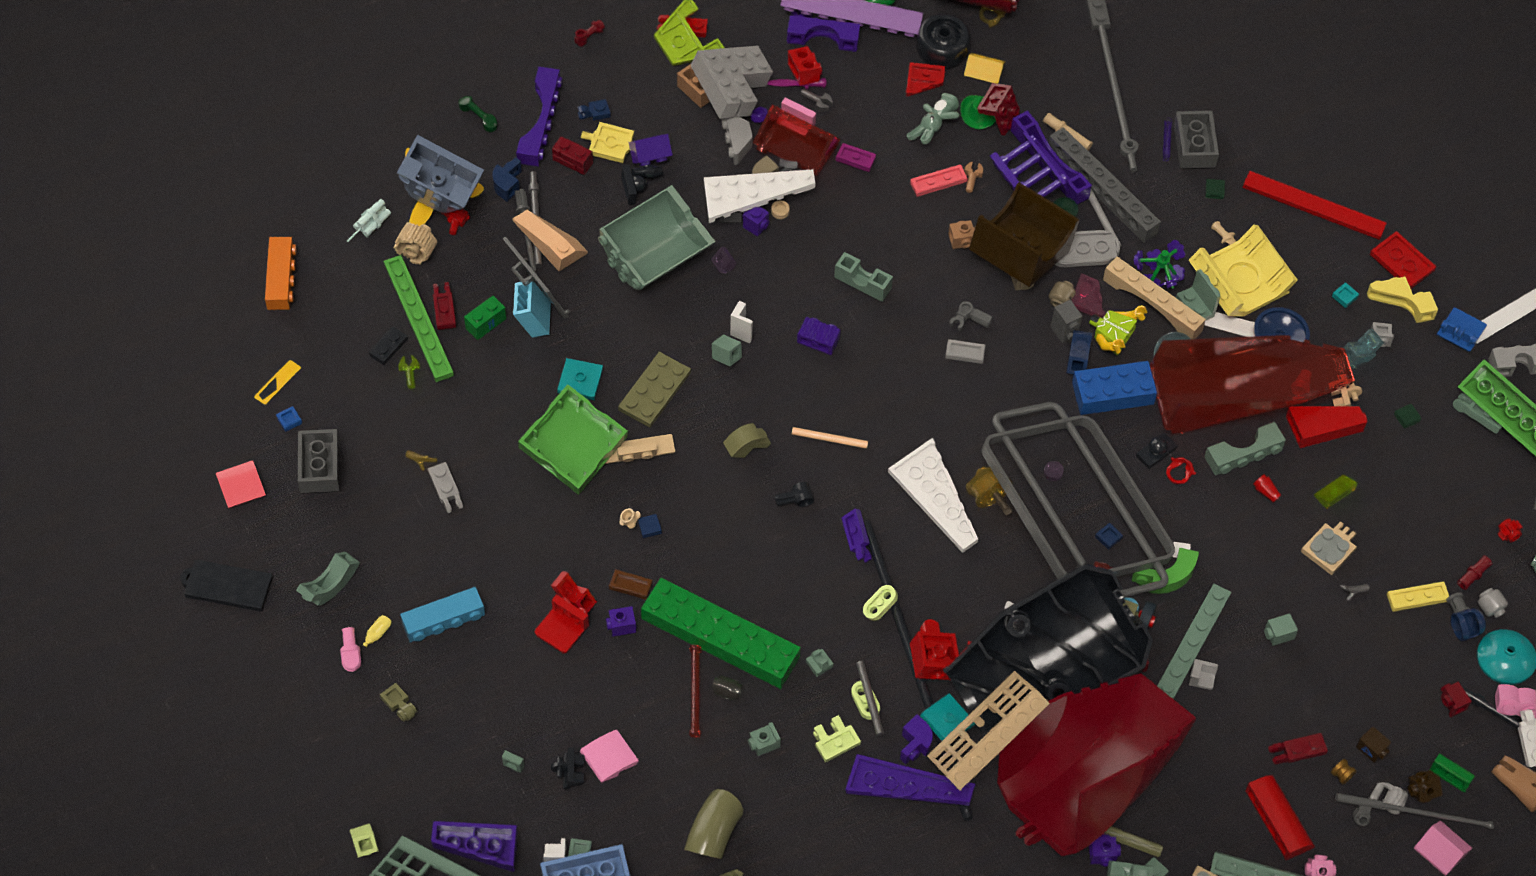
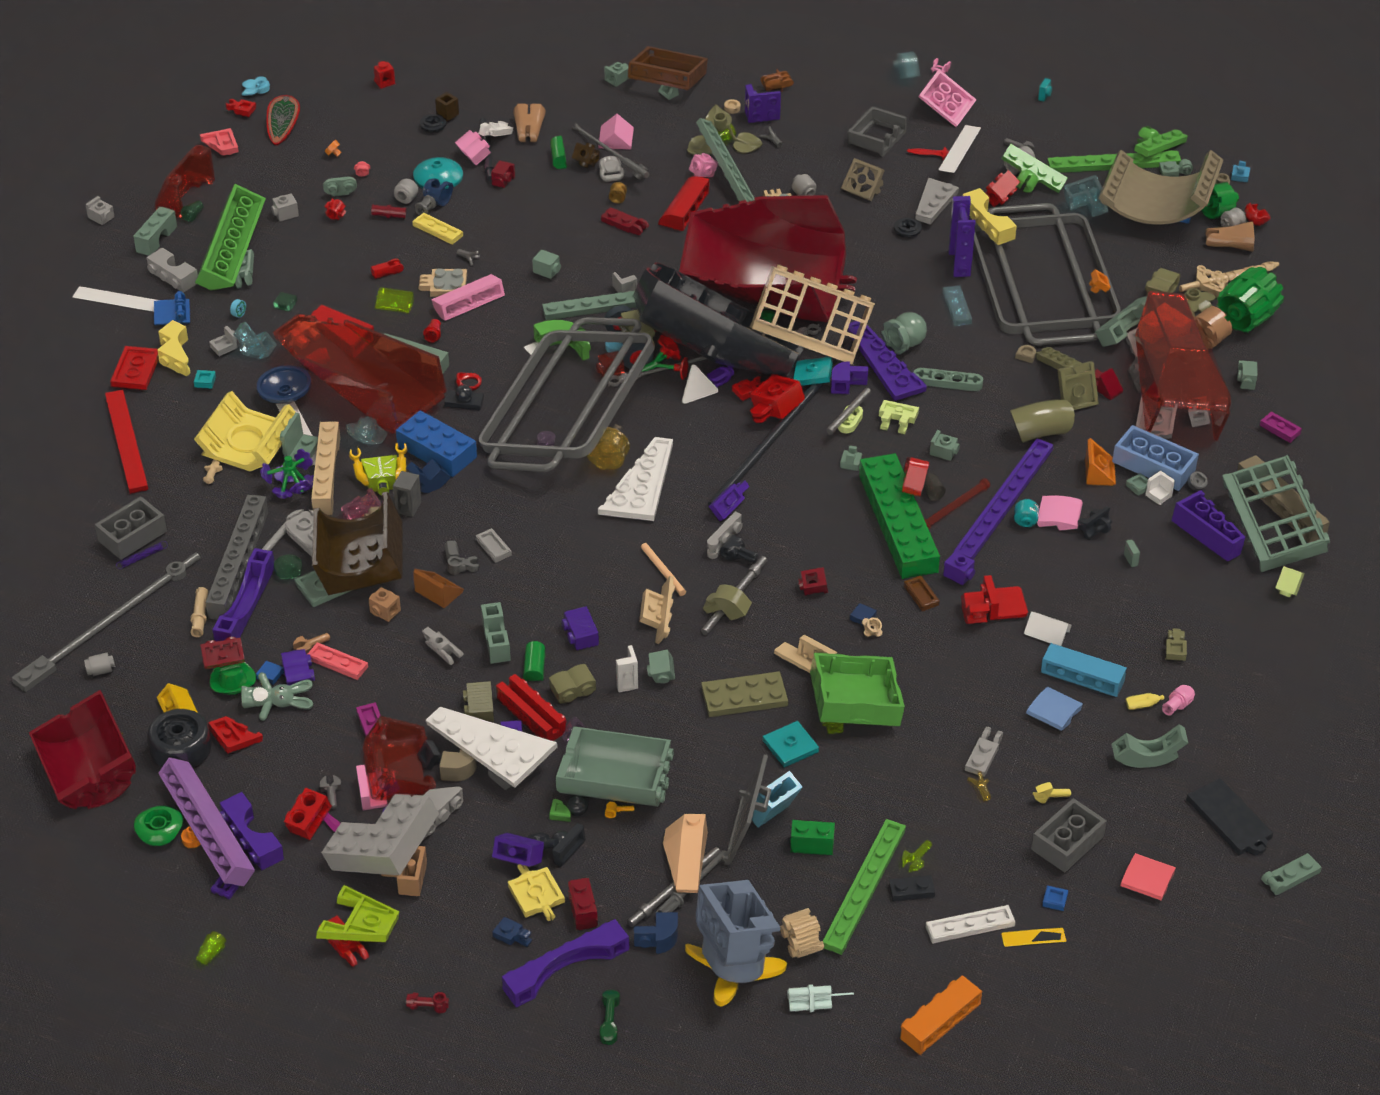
camera: 130 degrees left, 15 degrees down
(145, 574) = (1291, 874): none -> sand green plate
(325, 353) = (970, 924): none -> white tile
(369, 484) = (1046, 790): none -> light yellow bar
(432, 564) = (1054, 708): none -> medium blue slope
(444, 308) = (833, 878): dark red hinge -> none
(507, 634) = (1046, 628): none -> white panel
(626, 830) = (1099, 465): none -> orange slope
(629, 724) = (1026, 513): none -> teal head
(663, 729) = (1004, 499): none -> dark purple plate
(710, 516) = (817, 578): none -> dark red brick
(744, 668) = (915, 476): none -> beam
(766, 491) = (752, 572): none -> flat silver bar
(769, 290) = (572, 683): none -> olive brick
(771, 250) = (531, 708): none -> red brick
(790, 394) = (656, 609): none -> tan bracket
(808, 226) = (479, 700): none -> olive brick
(815, 287) = (534, 661): none -> green brick
(820, 498) = (726, 530): none -> light grey plate
(840, 819) = (948, 376): none -> sand green beam
(879, 602) = (768, 451): yellowish green plate -> none
(888, 244) = (441, 645): none -> light grey hinge
(923, 827) = (904, 332): none -> sand green tile
(949, 147) = (296, 666): none -> dark purple brick
(952, 281) = (435, 587): none -> dark orange slope
(965, 135) = (272, 671): none -> blue tile
(1012, 174) = (290, 606): dark purple fence -> none
(1067, 46) = (99, 664): none -> light grey brick
(1109, 536) = (567, 384): dark blue tile -> none
(1214, 188) = (168, 501): clear green tile -> none
(1291, 544) = (468, 297): none -> bright pink brick
(1374, 745) = (581, 190): dark brown brick -> none
(1388, 514) = (387, 268): none -> red bar
(1423, 372) = (238, 308): none -> medium azure tile

